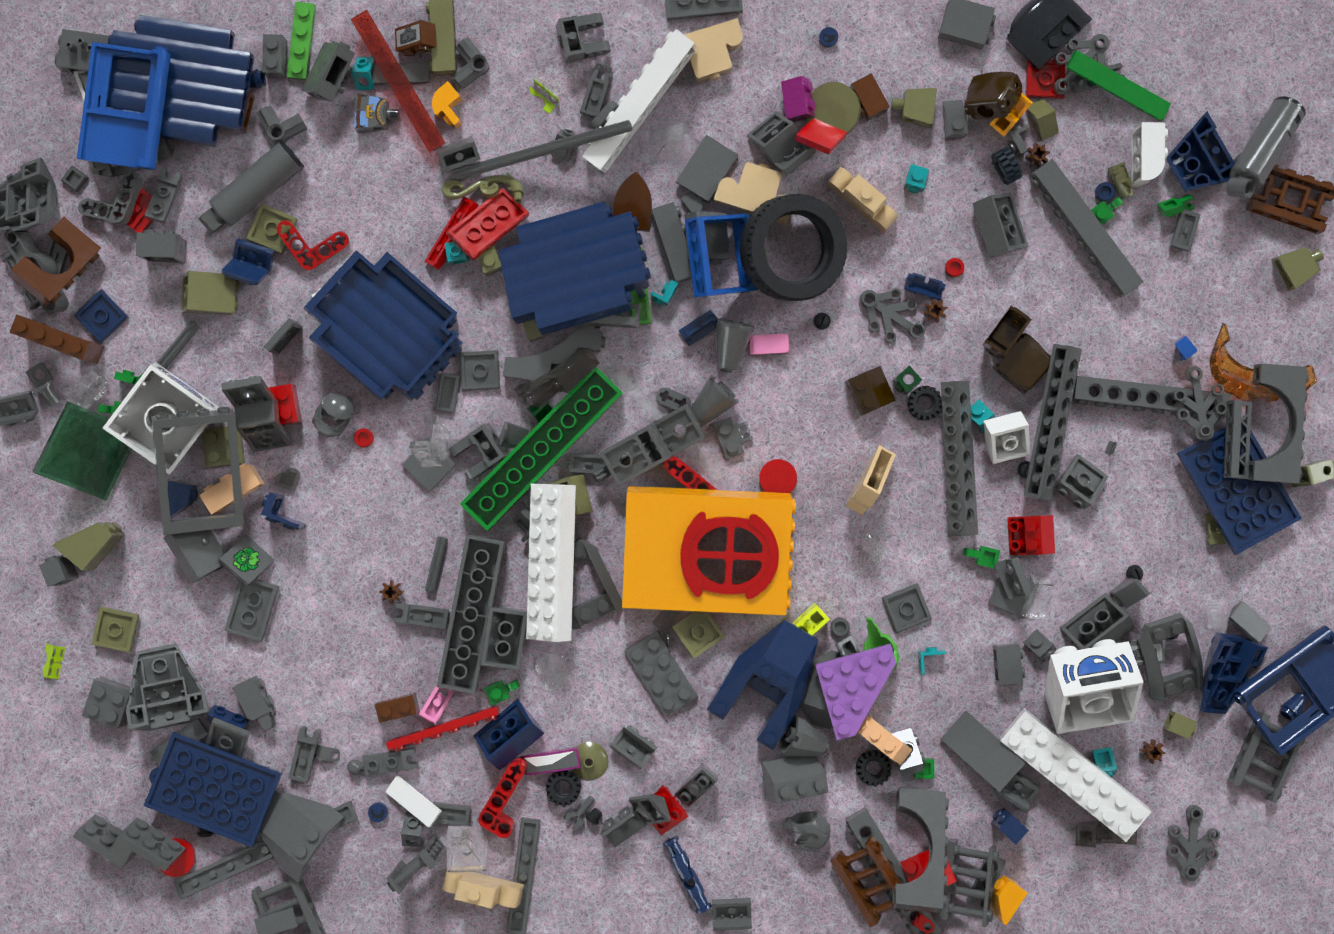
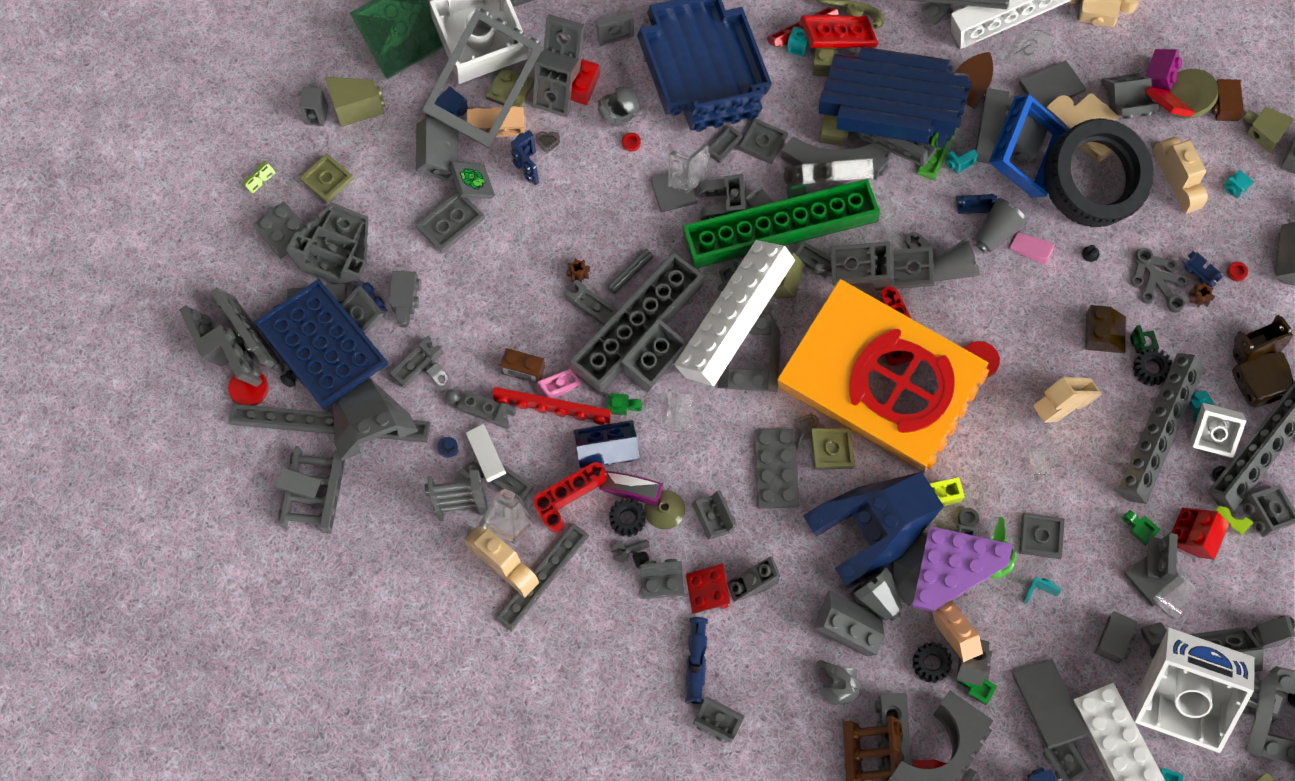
camera: 30 degrees right, 20 degrees down
(131, 809) = (246, 329): none -> dark grey hinge
(651, 808) = (698, 573): dark grey slope -> none
(731, 436) = (956, 305): dark grey hinge -> none
(828, 37) = (1214, 41): dark blue tile -> none
(1060, 511) = (1240, 526): none -> lime piece

